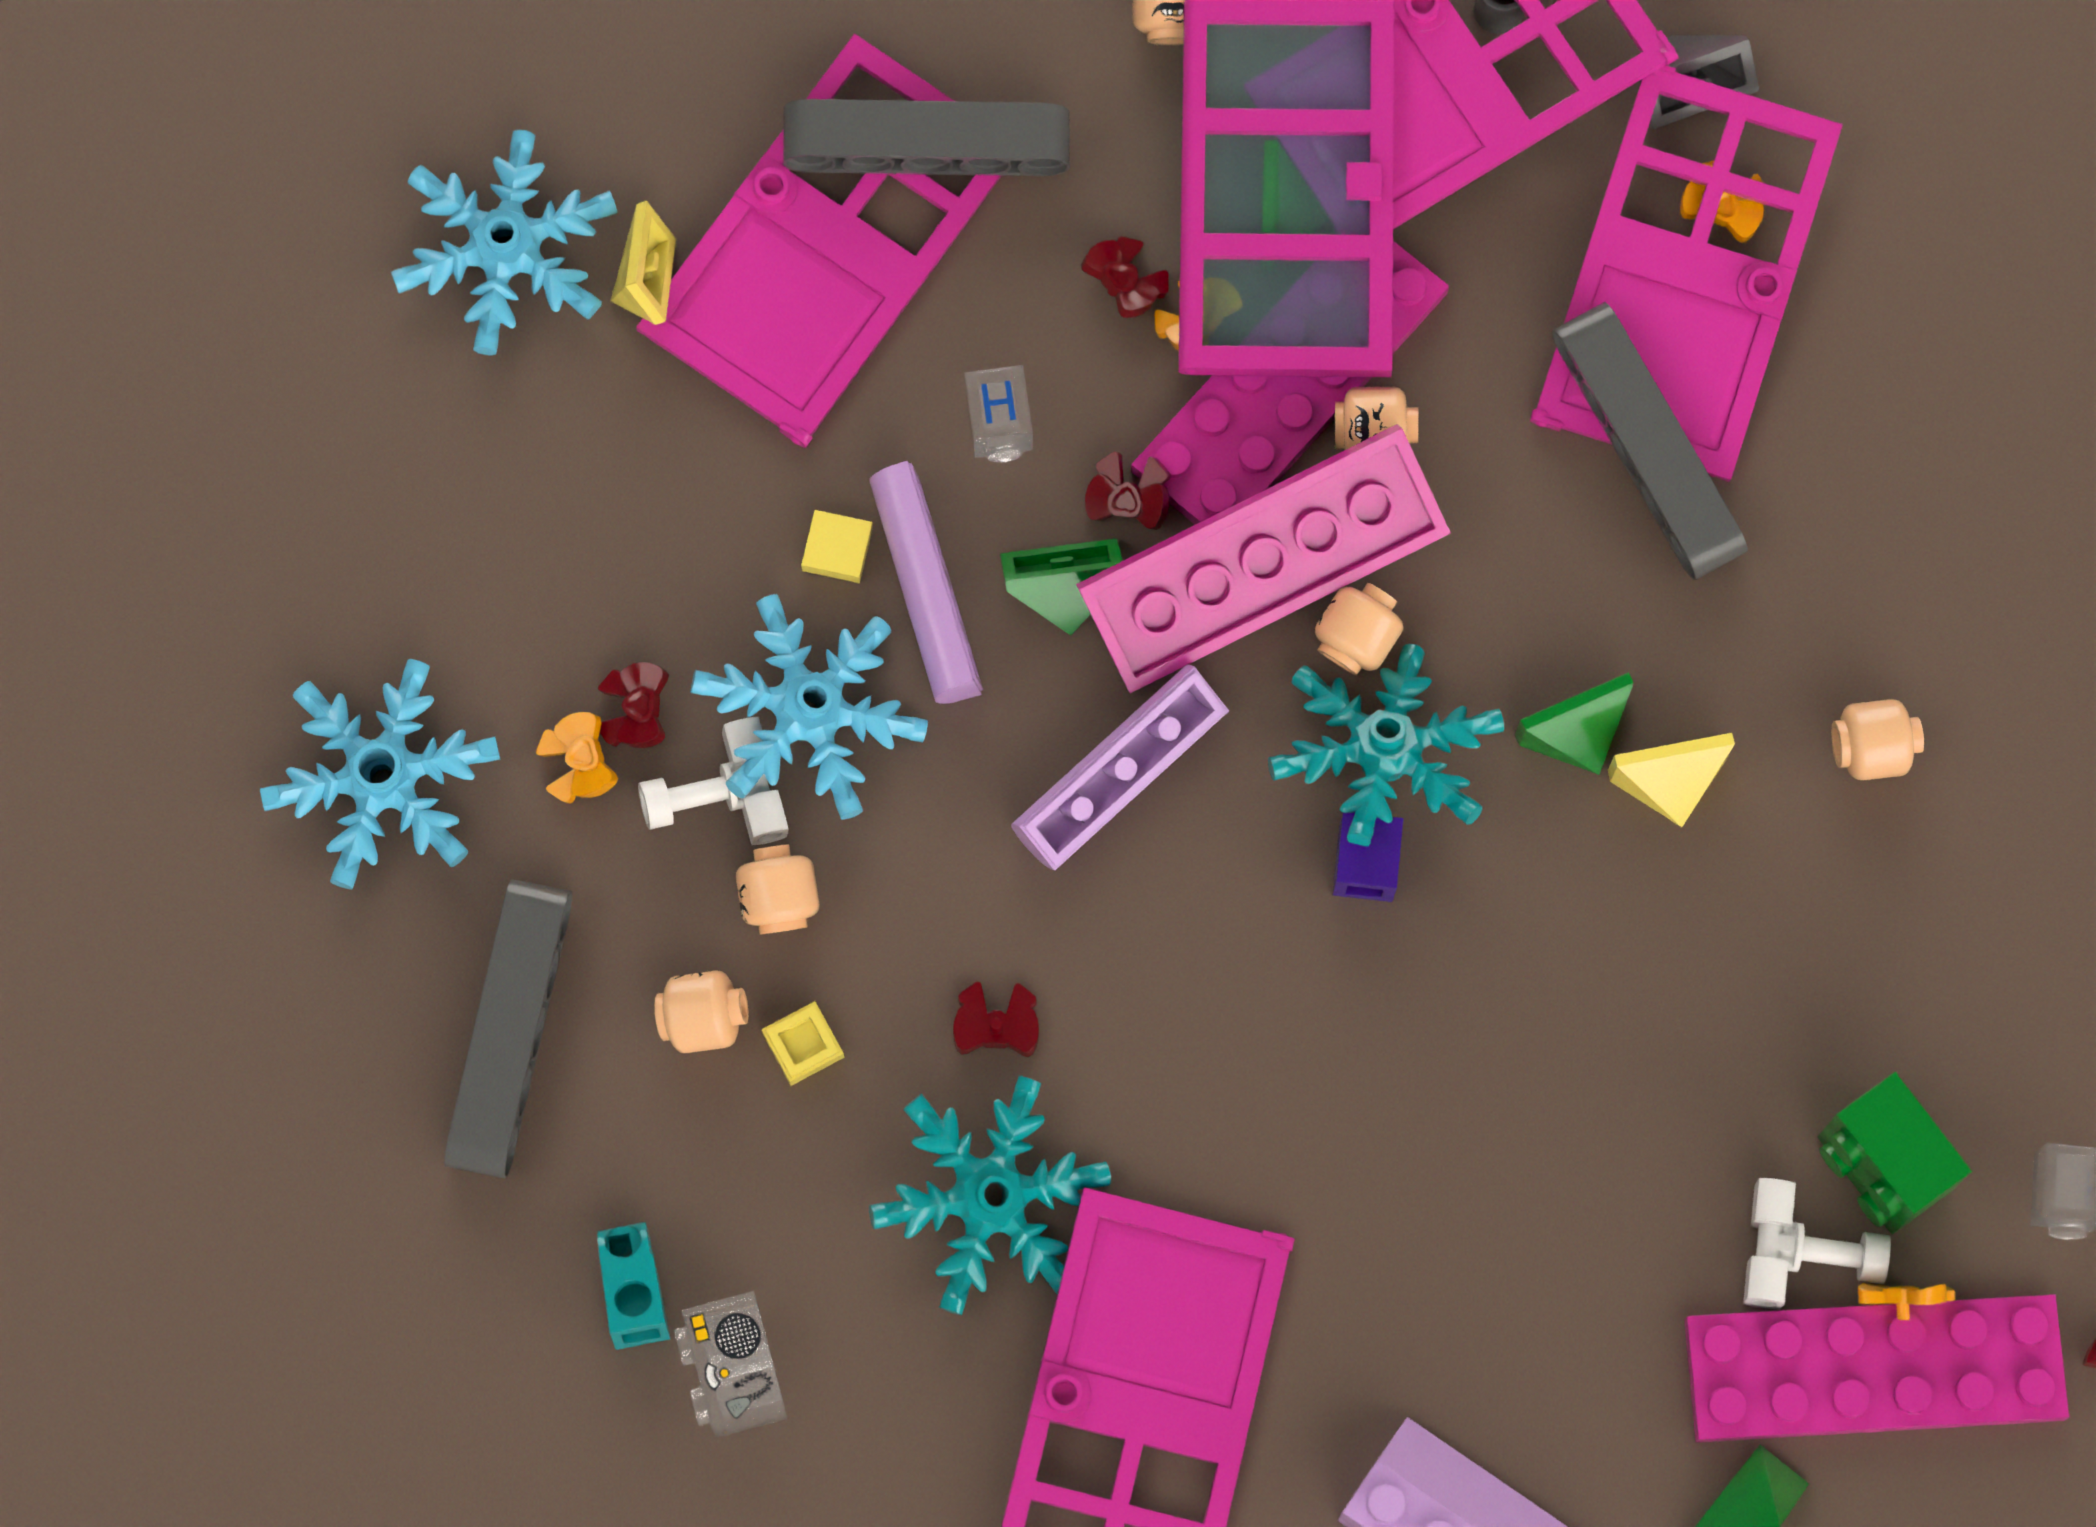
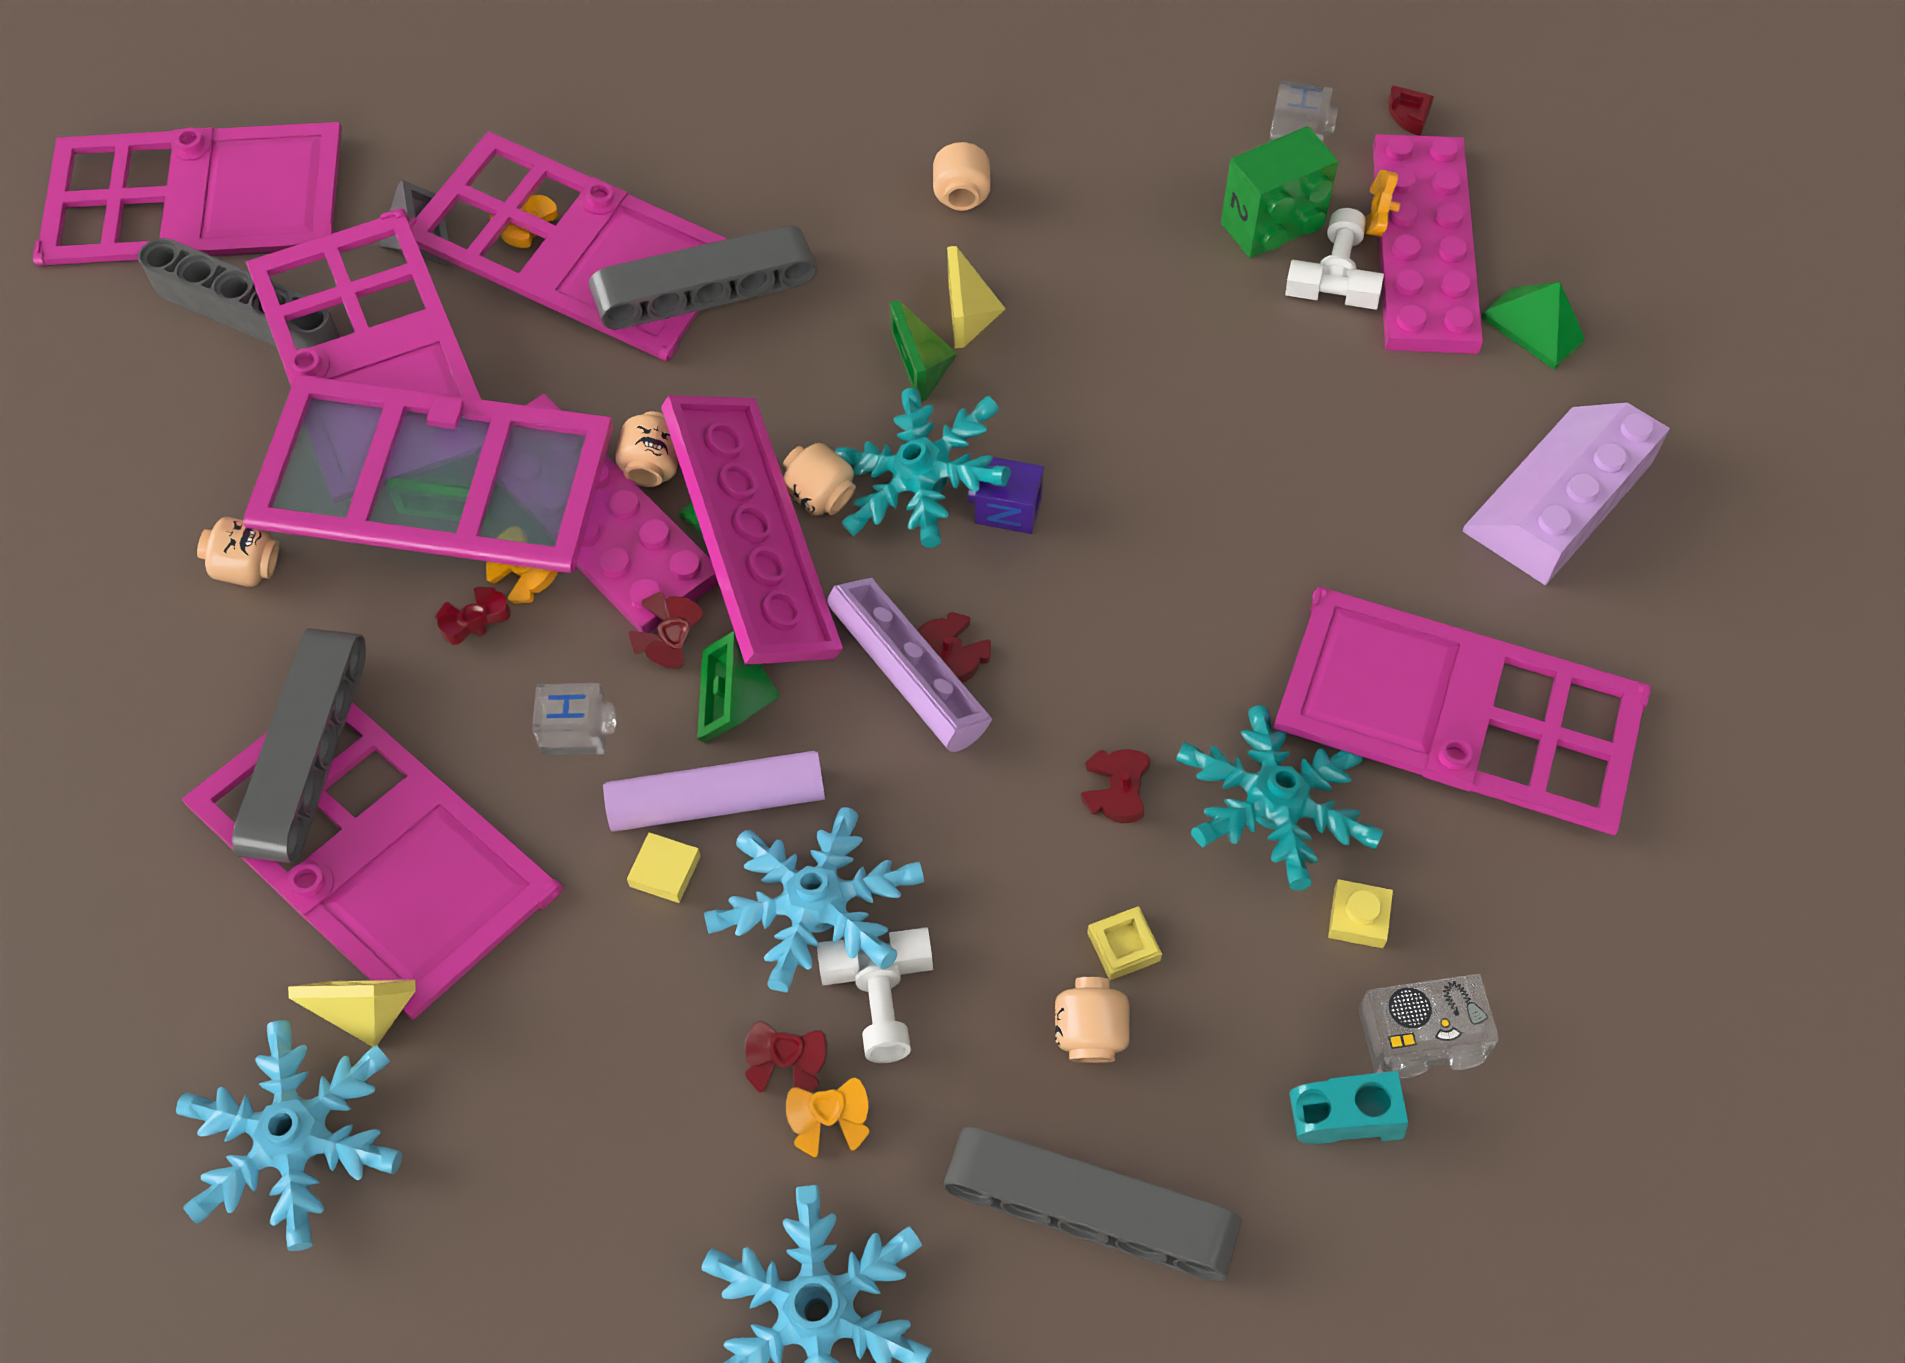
camera: 80 degrees left, 15 degrees down
(777, 890) = (984, 943): light nougat head -> none
(864, 1297) = (1360, 914): none -> light yellow plate
(1136, 826) = (942, 637): none -> dark red piece

